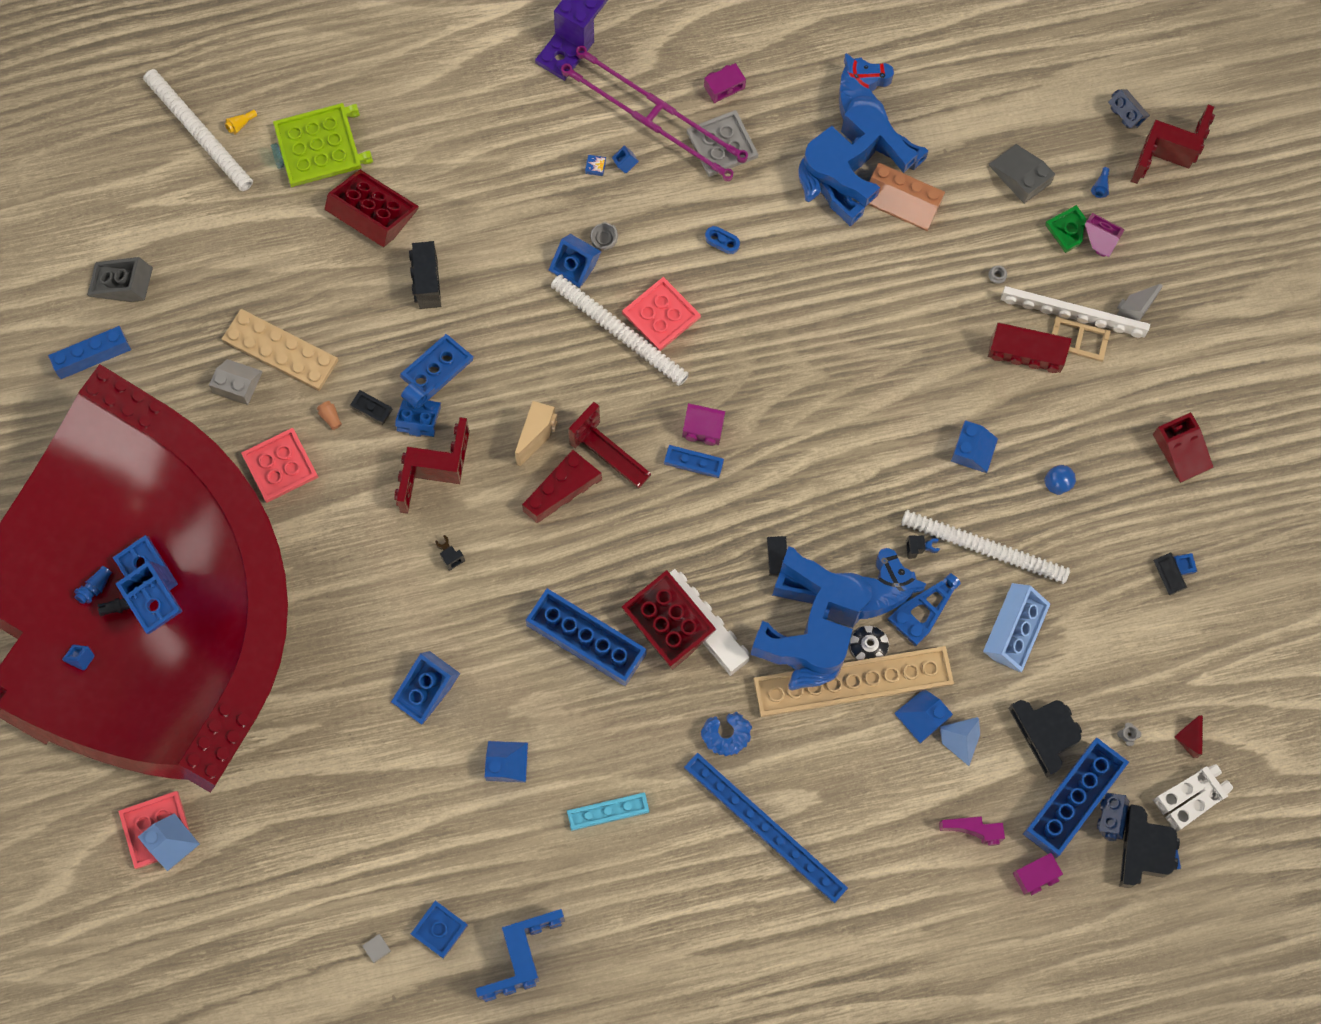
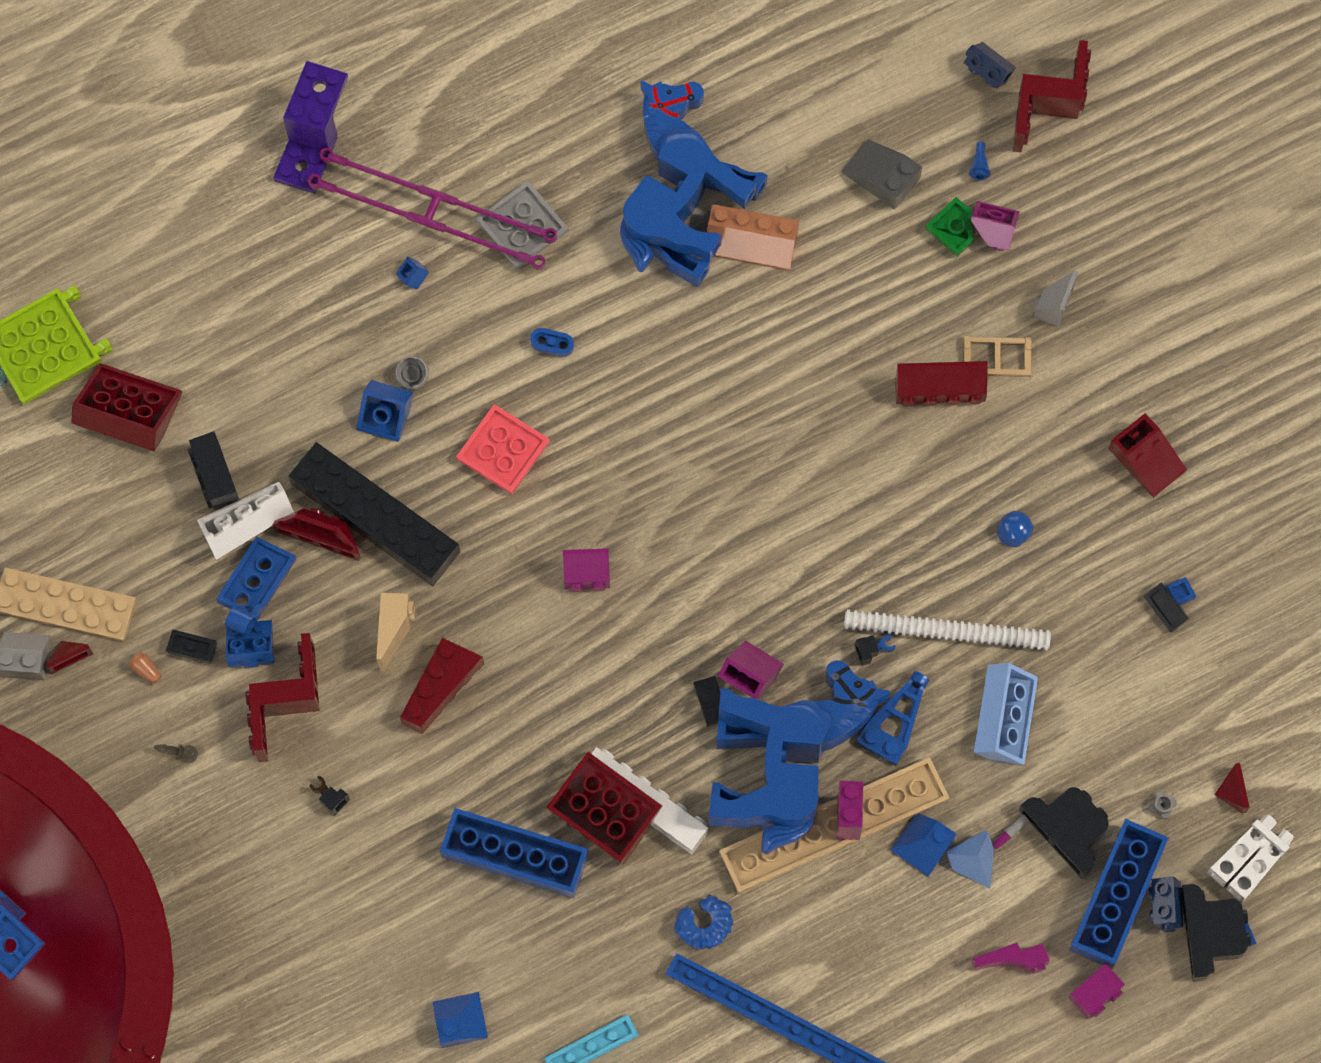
camera: 10 degrees left, 0 degrees up
(271, 389) = (68, 654): none -> dark red slope
(279, 465) = (102, 742): coral plate -> none
(344, 491) = (187, 753): none -> clear smoke bar
(425, 686) = (343, 958): blue slope -> none
(440, 317) = (244, 519): none -> white wedge
(496, 341) = (319, 530): none -> dark red wedge
(545, 339) = (374, 514): none -> black brick
(585, 432) = (454, 614): dark red bracket -> none
(595, 165) = (379, 288): tile -> none
(619, 330) = (458, 480): white piece -> none
(694, 461) = (586, 615): blue plate -> none
(724, 82) = (506, 150): magenta brick -> none
(816, 538) = (750, 670): none -> magenta brick
(862, 650) = (832, 767): dish -> none
(869, 671) = (850, 810): none -> magenta brick
(974, 447) = (907, 516): blue slope -> none
(997, 270) = (884, 296): light grey plate -> none
(997, 724) = (1010, 831): none -> light grey piece
(1081, 314) = (993, 326): white plate -> none

